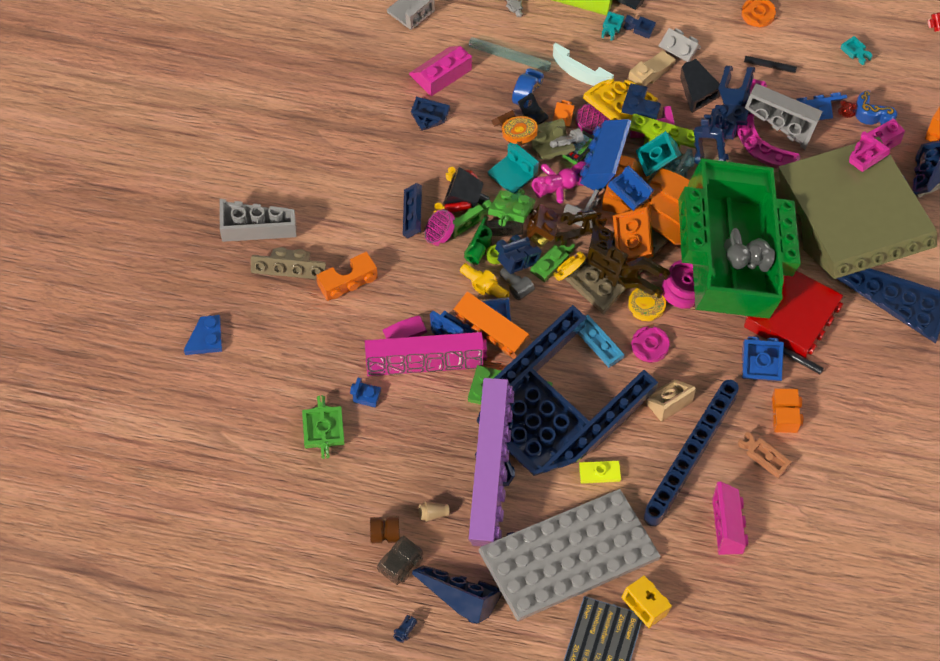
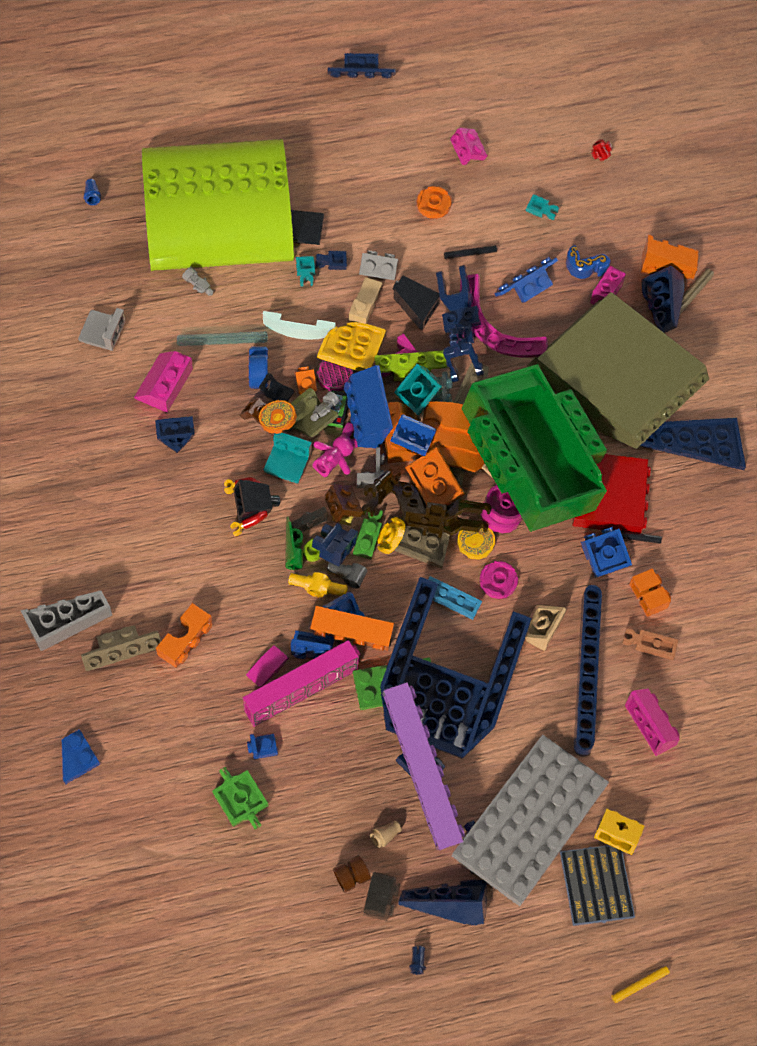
camera: 30 degrees left, 5 degrees up
(412, 210) = (212, 540): dark blue plate -> none
(439, 227) = (248, 547): tile -> none
(470, 218) = (272, 522): bright green plate -> none
(511, 206) = (306, 498): bright green plate -> none
(599, 472) = (515, 725): neon yellow plate -> none
(636, 103) = (371, 345): dark blue plate -> none
(753, 254) = (560, 456): dark grey animal -> none
(784, 113) = (512, 300): light grey wedge -> none
(847, 109) = (562, 271): clear red plate -> none
(868, 152) = (611, 312): dark pink wing -> none

